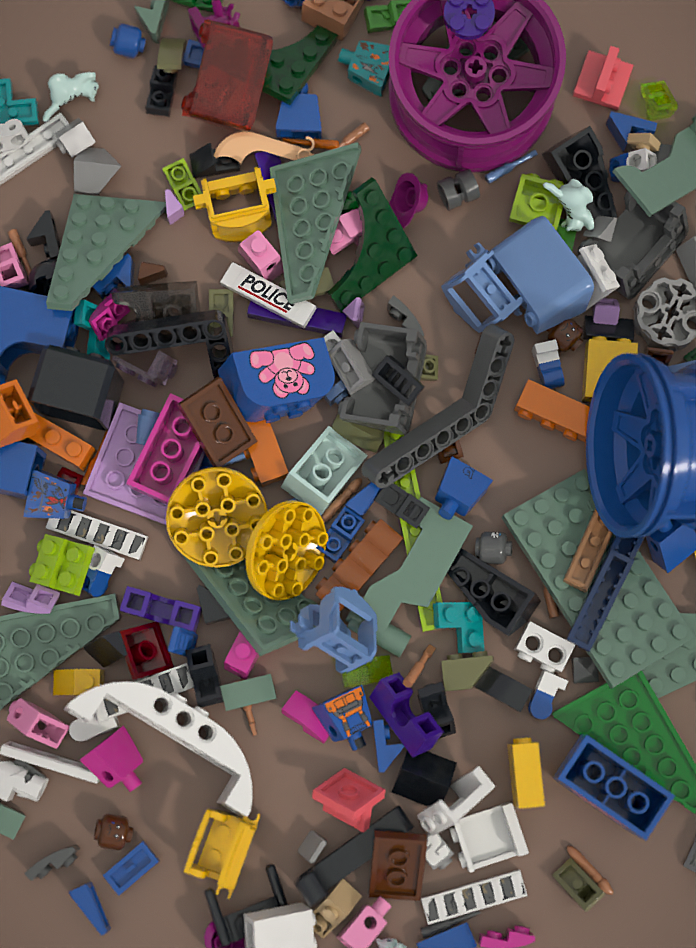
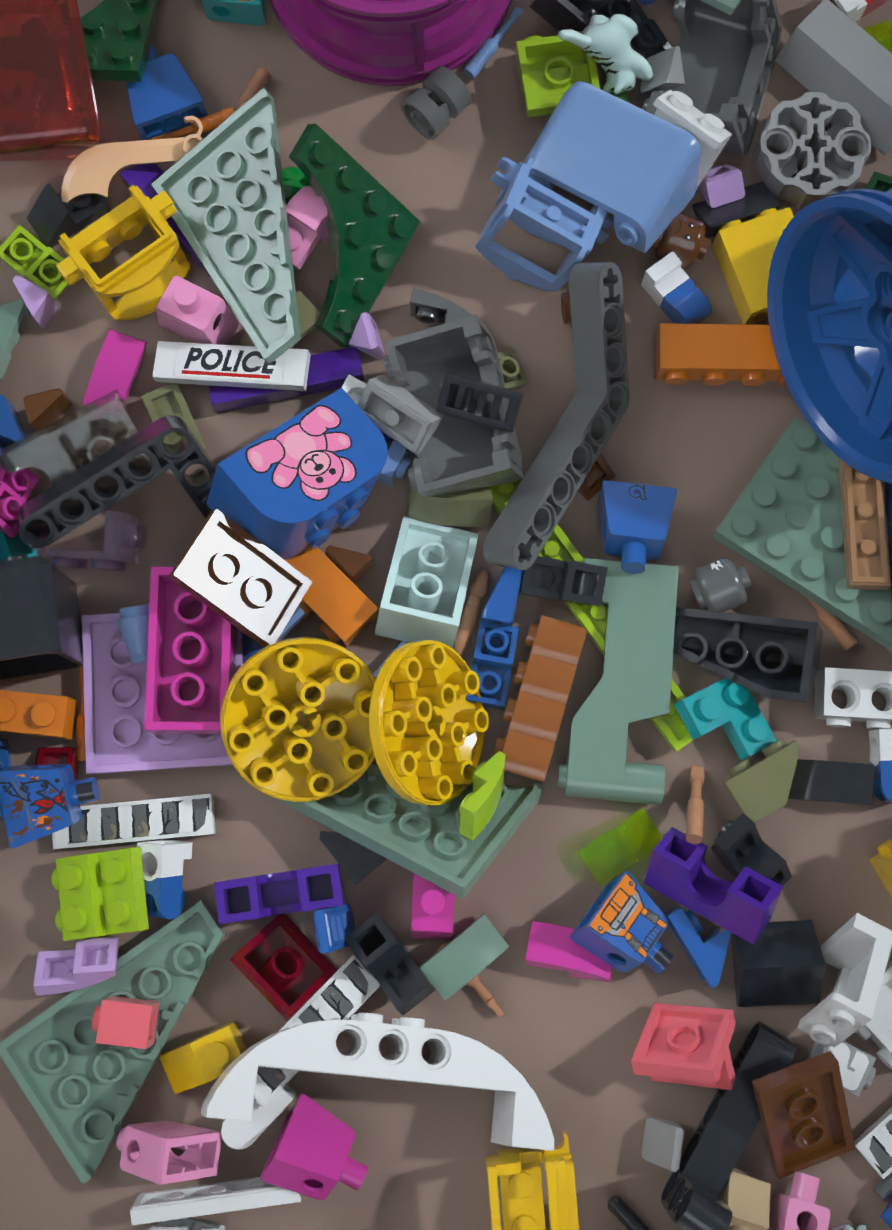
camera: 25 degrees left, 0 degrees up
(44, 641) = (126, 1022): none -> coral brick
(107, 649) = (226, 989): black slope -> none
(201, 266) = (115, 366): none -> dark pink slope
(285, 440) = (350, 562): none -> reddish brown slope
(290, 609) = (482, 803): none -> lime slope
(332, 633) = (555, 817): medium blue animal -> none
(408, 198) = (372, 140): magenta piece -> none

